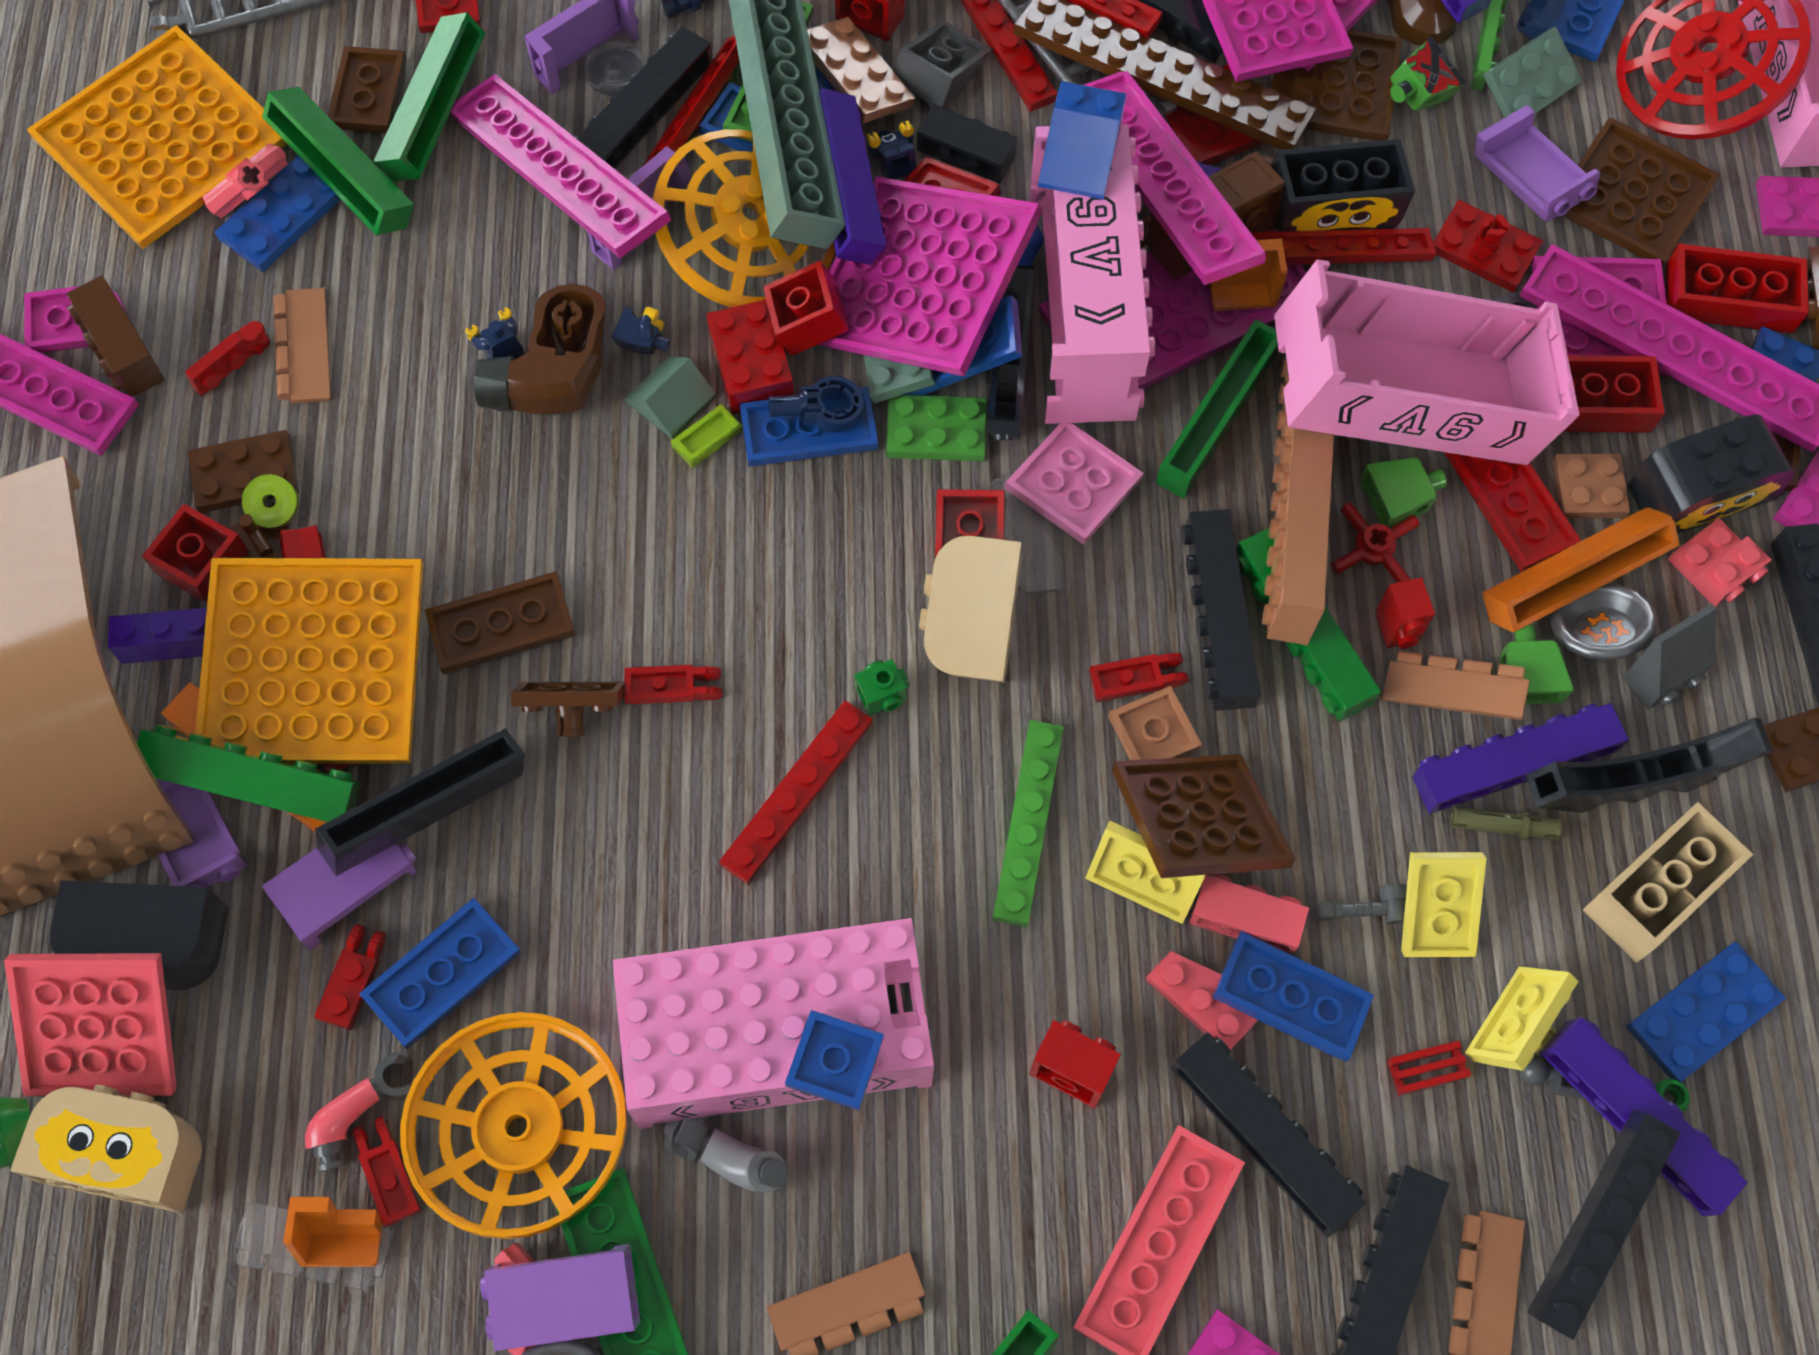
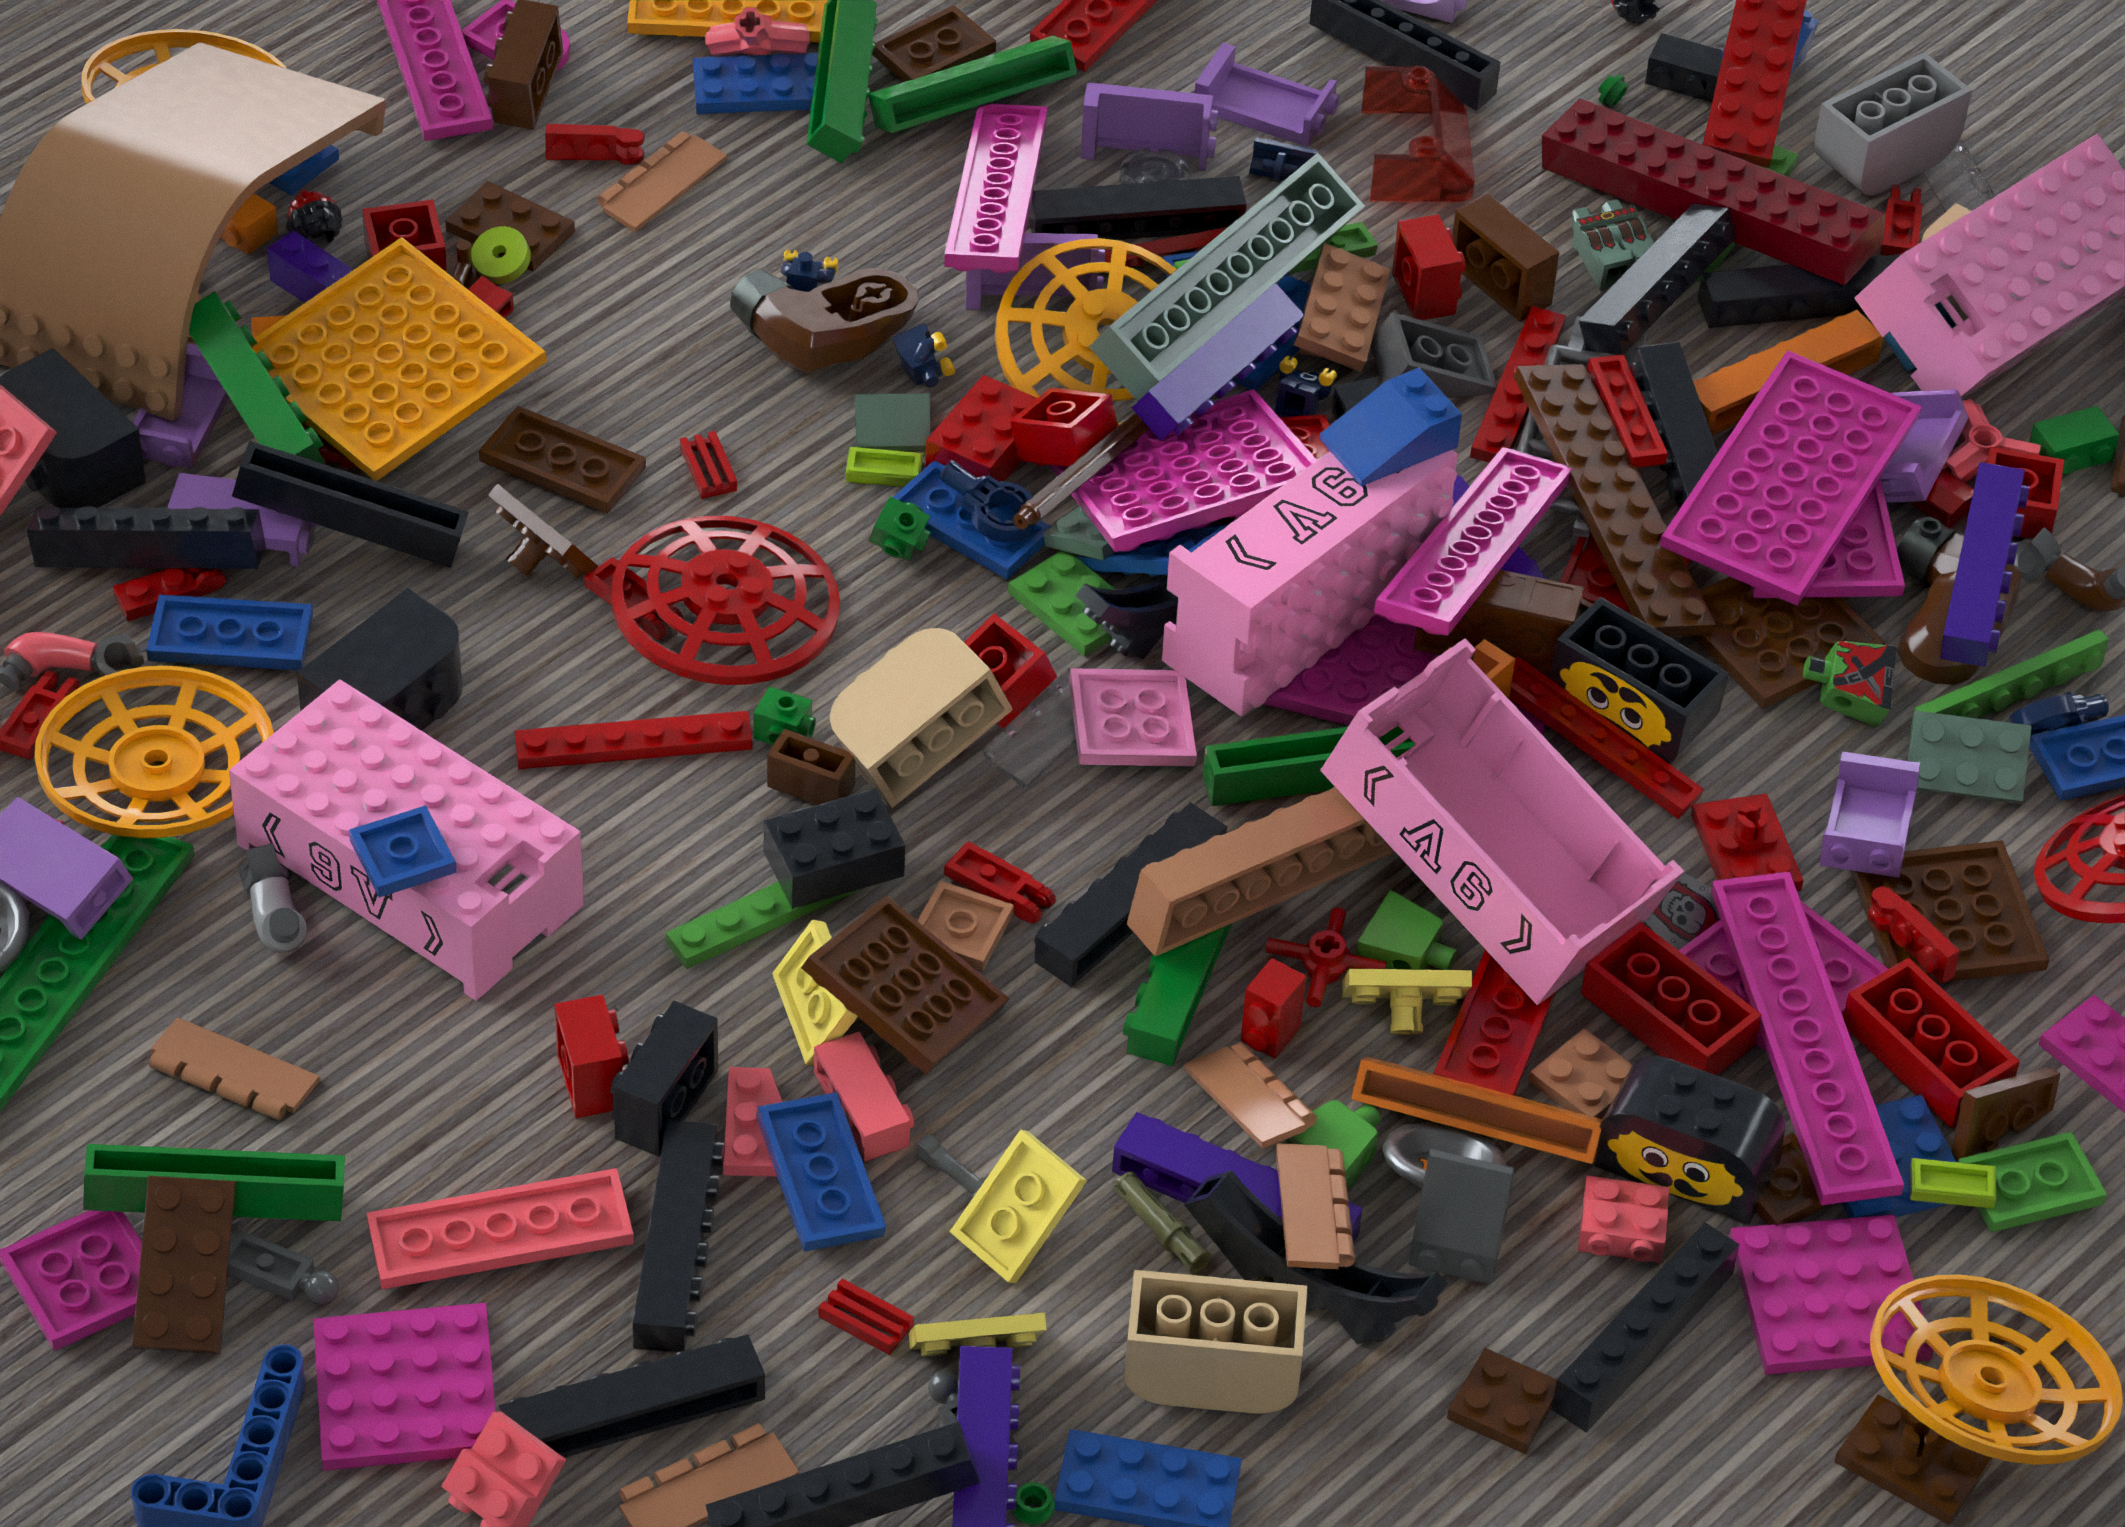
camera: 45 degrees right, 20 degrees down
(107, 589) = (313, 214): none -> black piece
(301, 962) = (146, 537): none -> black brick
(600, 525) = (701, 444): none -> red tile
(600, 906) = (397, 657): none -> black brick
(731, 644) = (715, 604): none -> red dish
(783, 475) = (900, 529): none -> green brick
(857, 332) = (1080, 472): none -> piece
(944, 709) = (810, 769): none -> reddish brown brick
(1036, 756) = (834, 848): none -> black brick
(1137, 1031) = (665, 1076): none -> black brick
(1452, 525) = (1406, 992): none -> light yellow plate
(1590, 729) = (1314, 1206): none -> nougat windscreen
(1653, 223) = (1913, 933): none -> red hinge

